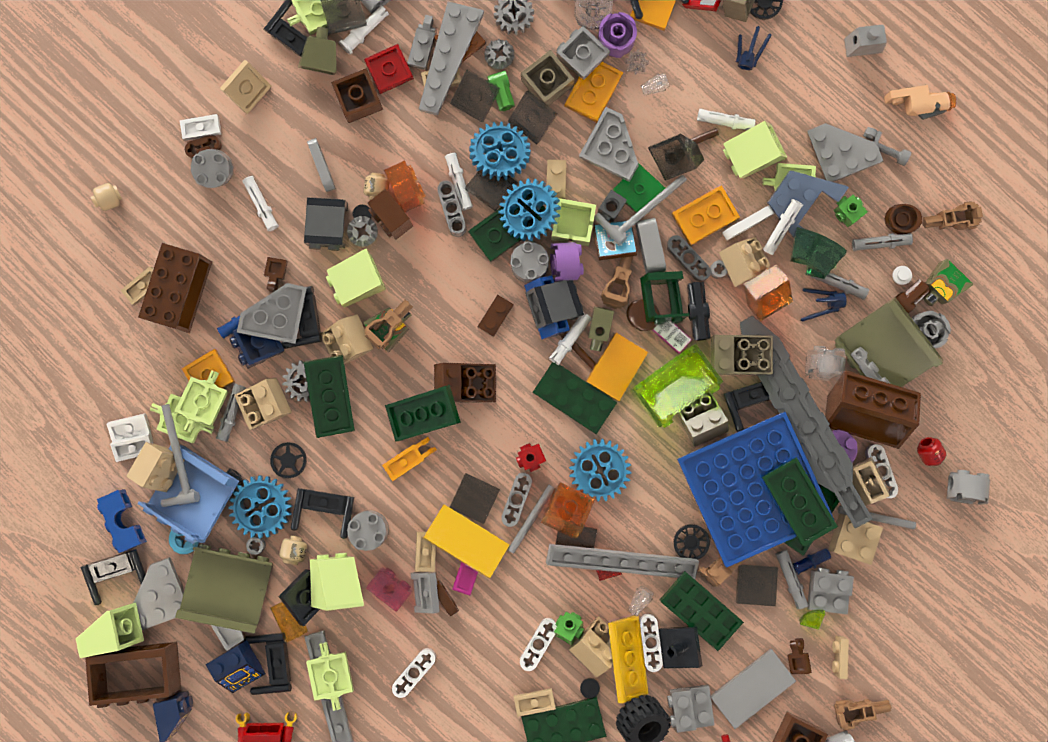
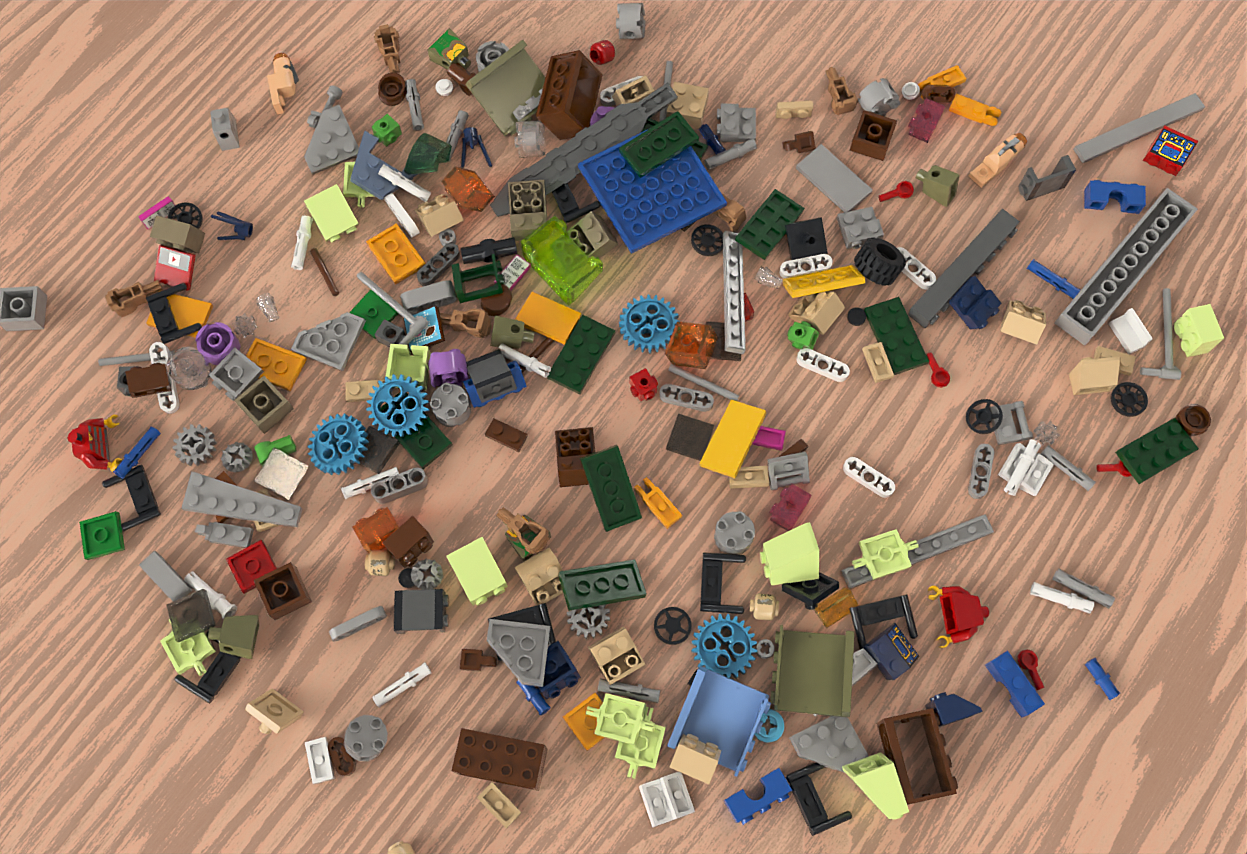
camera: 95 degrees left, 15 degrees down
(186, 495) = (721, 720): light grey bar -> none
(532, 117) = (302, 415): clear smoke tile -> none
(676, 156) = (340, 280): clear smoke slope -> none
(756, 585) = (740, 182): clear smoke tile -> none
(812, 619) = (763, 135): clear neon green tile -> none

